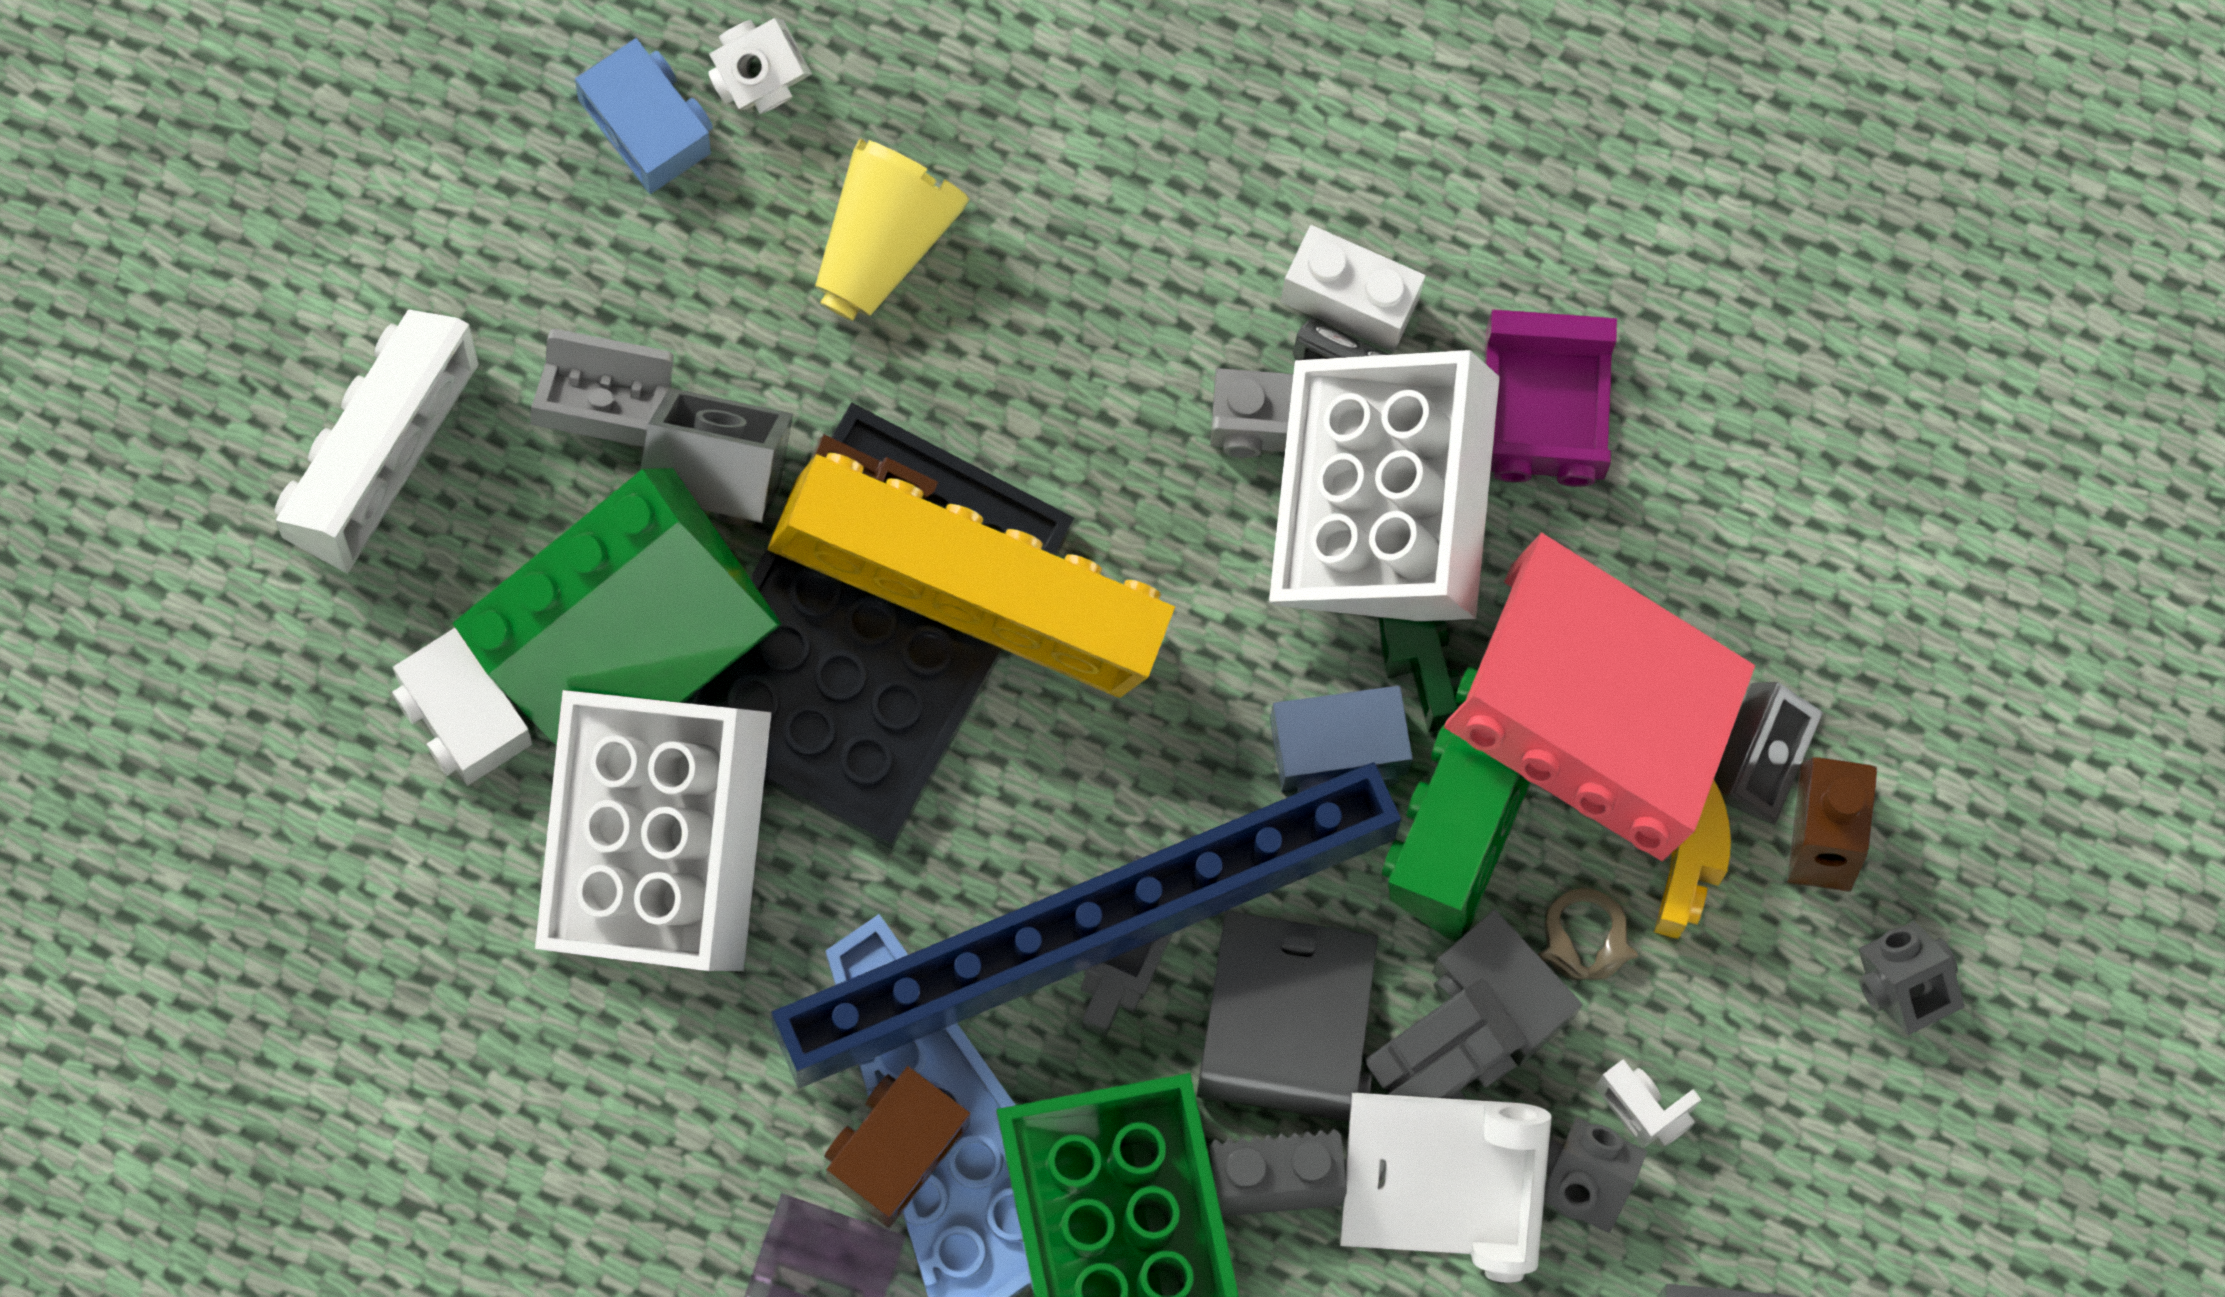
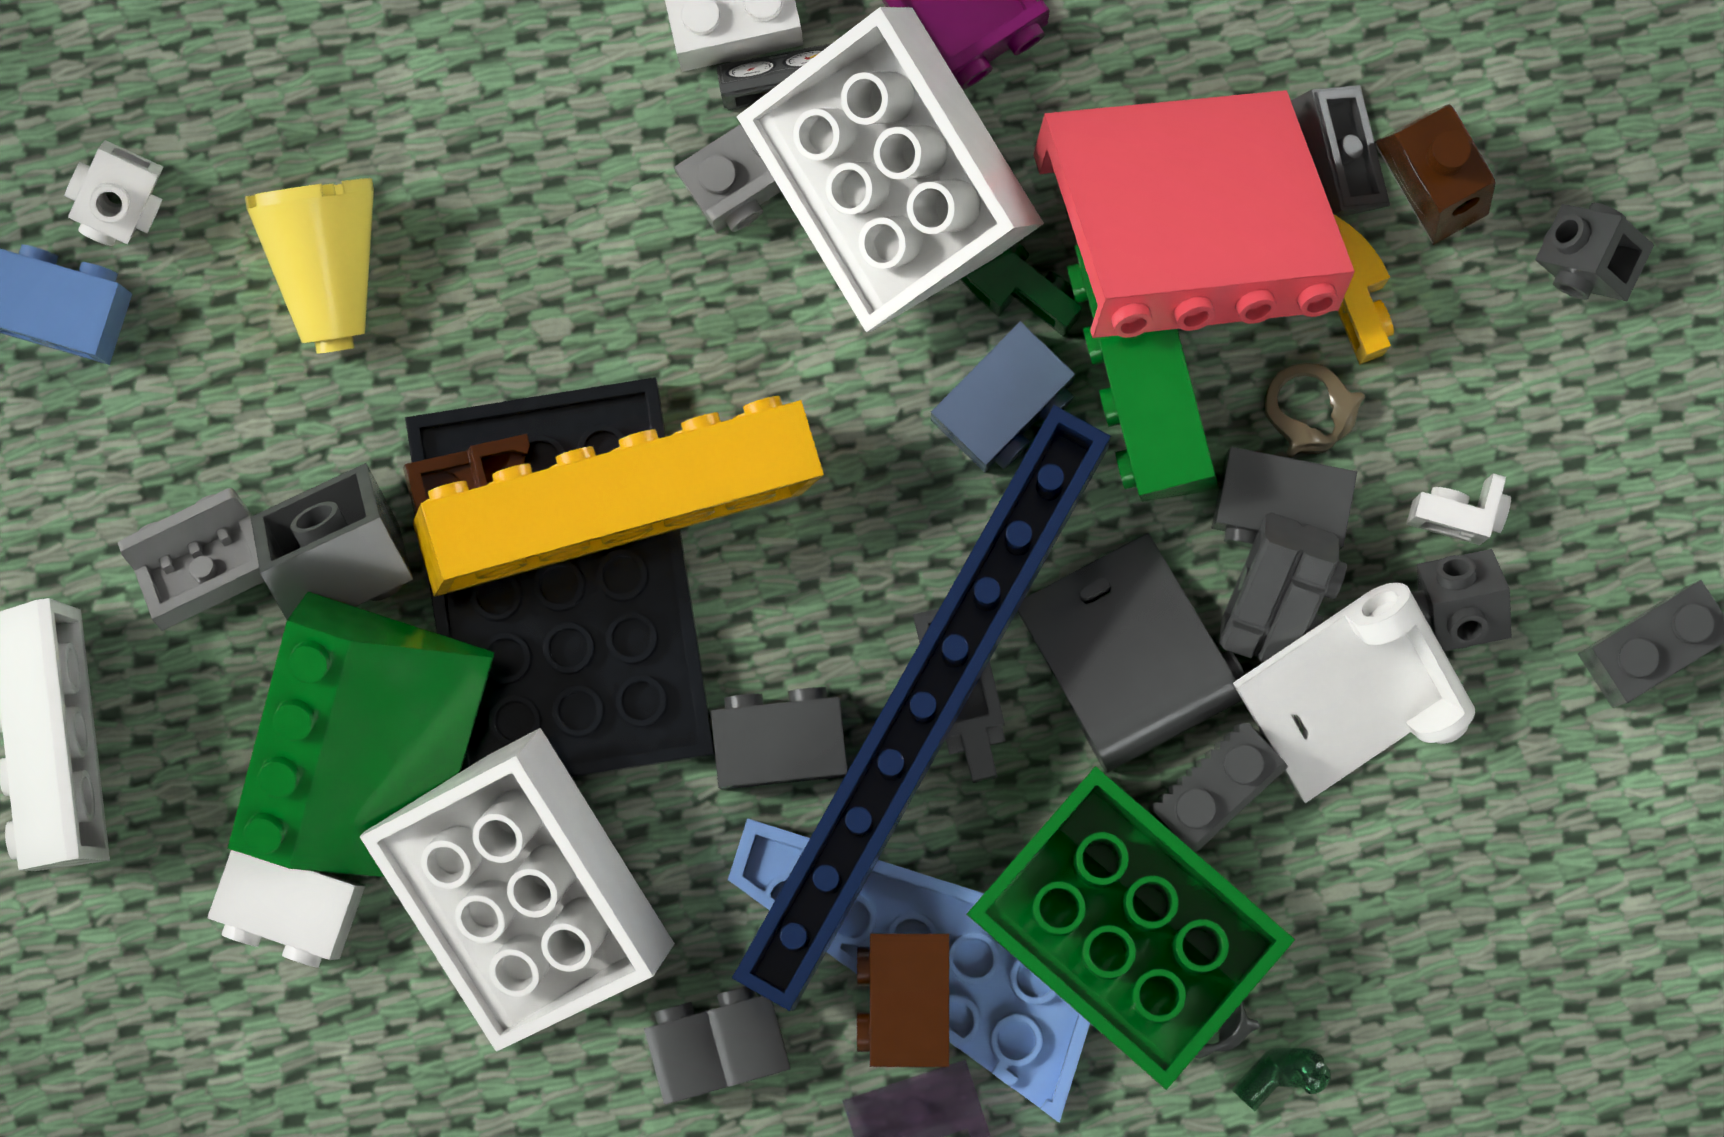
camera: 20 degrees left, 10 degrees up
(714, 1075) = (716, 1046): none -> dark grey brick
(950, 871) = (779, 740): none -> dark grey brick

